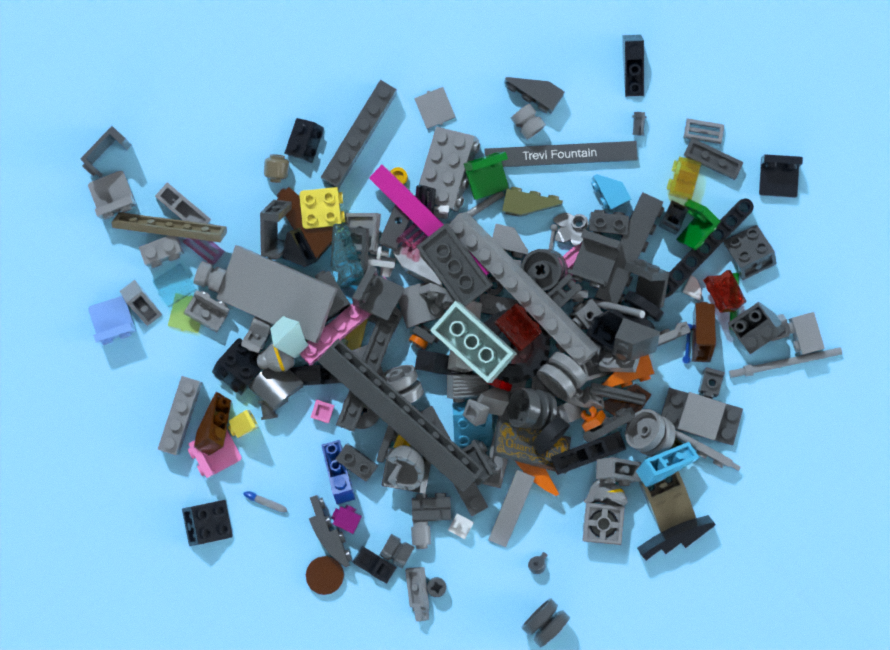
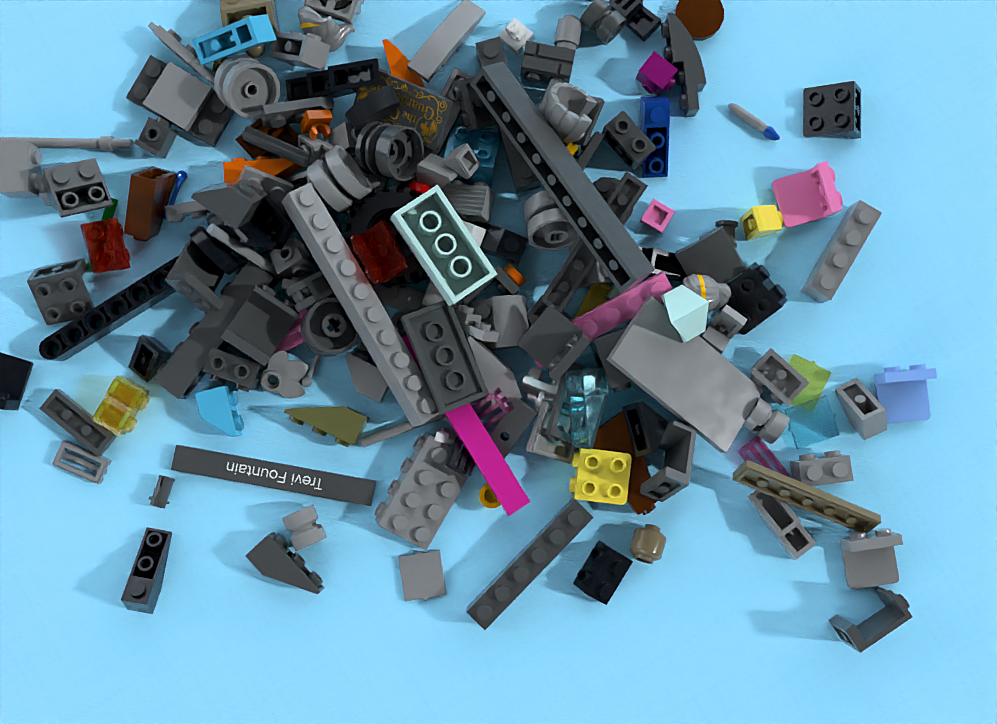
camera: 165 degrees left, 0 degrees up
(213, 427) = (802, 226): reddish brown slope -> none
(486, 175) = (374, 469): green bracket -> none
(693, 288) = (149, 261): white tile -> none
(700, 227) = (115, 336): green bracket -> none

